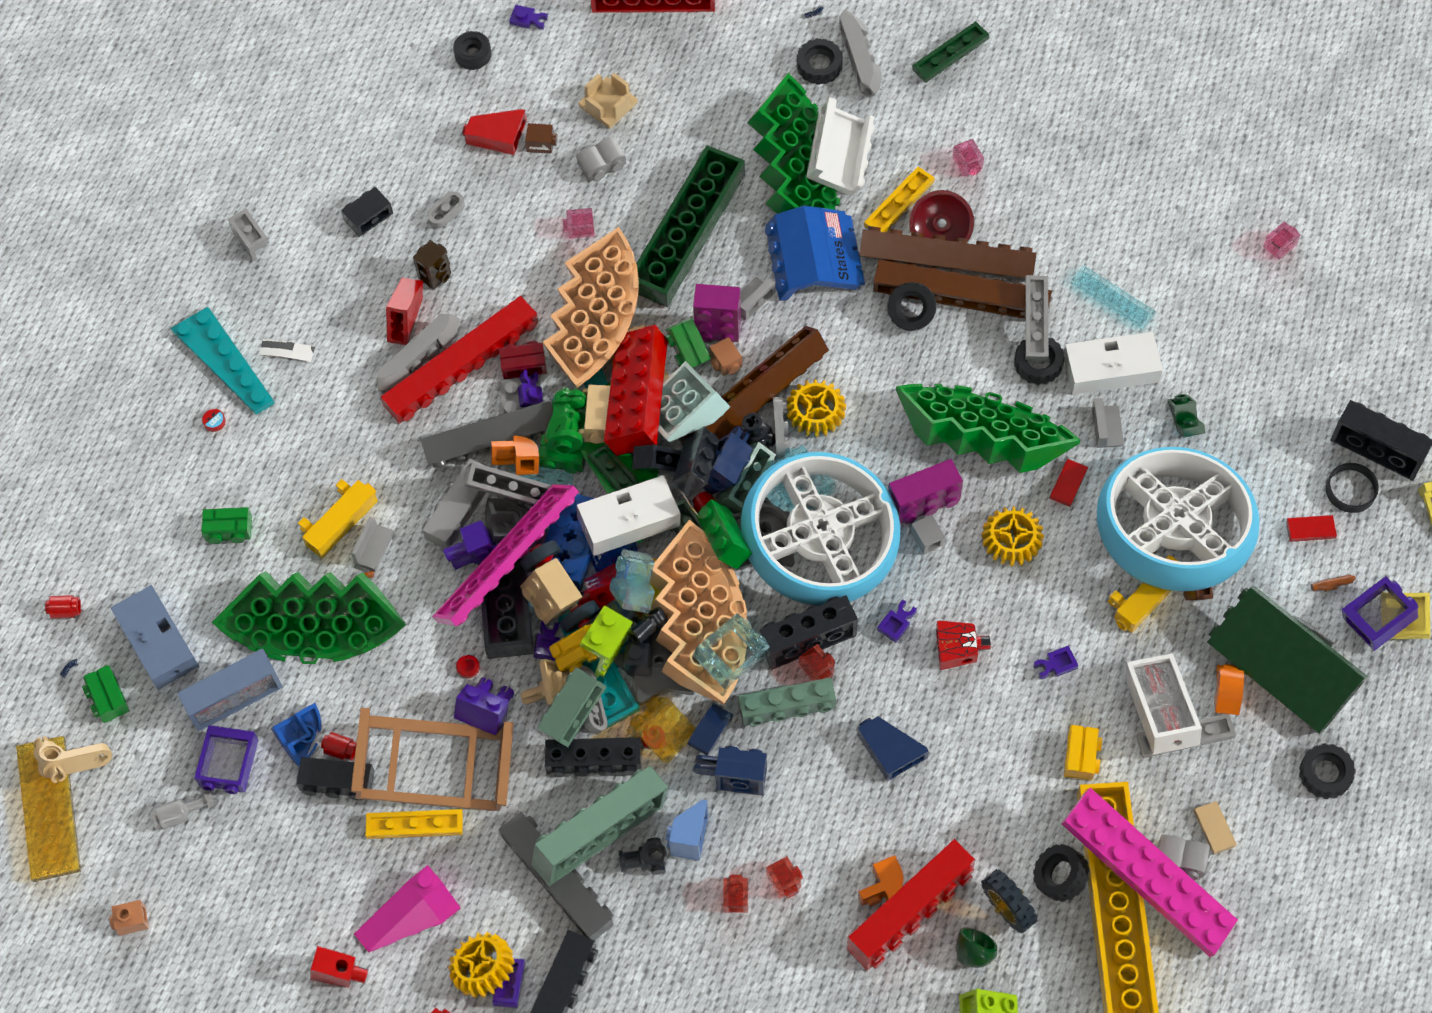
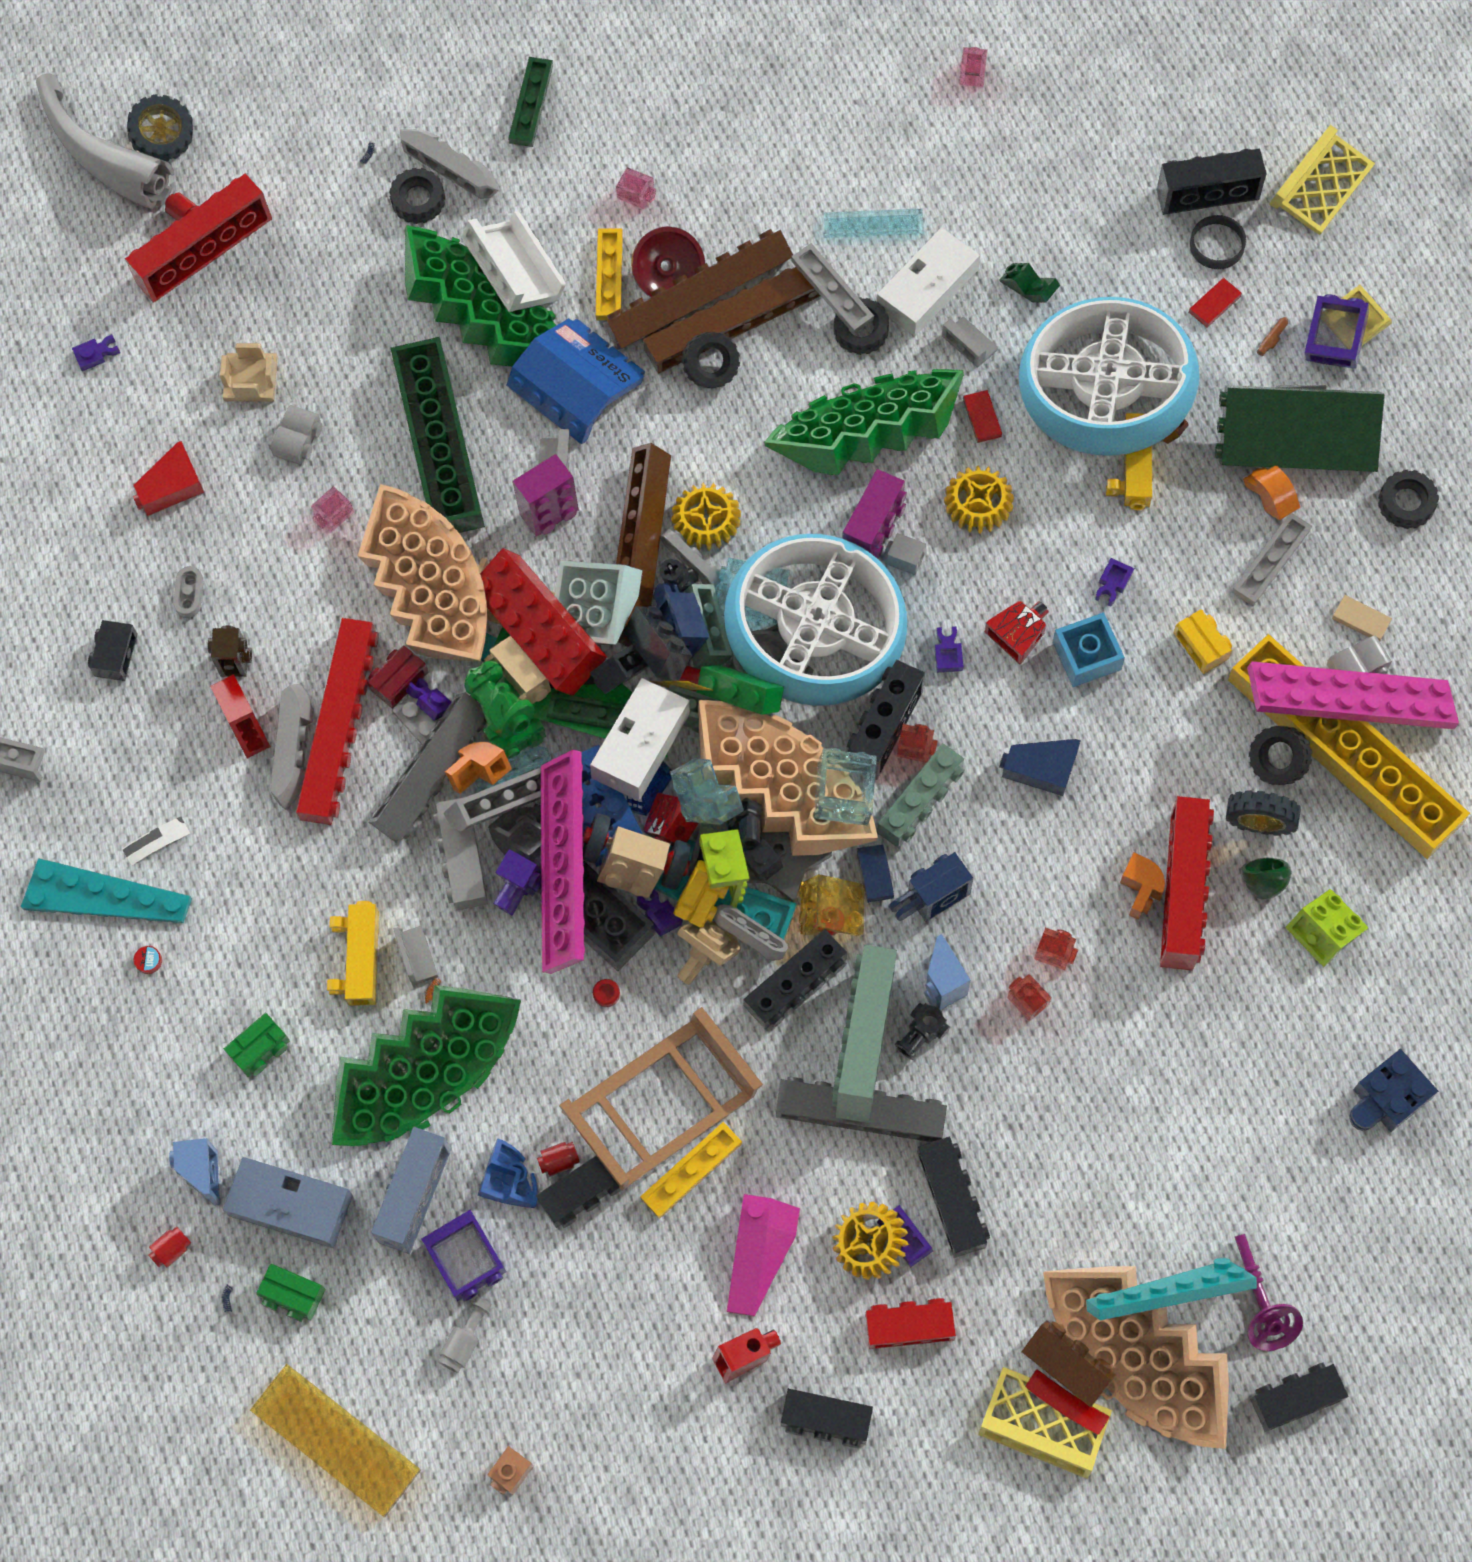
camera: 40 degrees left, 5 degrees up
(57, 763) = (311, 1392): tan piece -> none
(120, 571) = (198, 1165): none -> medium blue slope
(469, 40) = (67, 409): black tyre -> none
(481, 708) = (660, 1017): dark purple brick -> none
(540, 138) = (218, 457): reddish brown brick -> none
(571, 707) = (746, 949): sand green brick -> none
(687, 343) = (540, 545): green brick -> none
(725, 357) = (583, 532): nougat brick -> none
(992, 694) = (1088, 649): none -> dark azure brick
(1163, 704) = (1235, 545): brick -> none

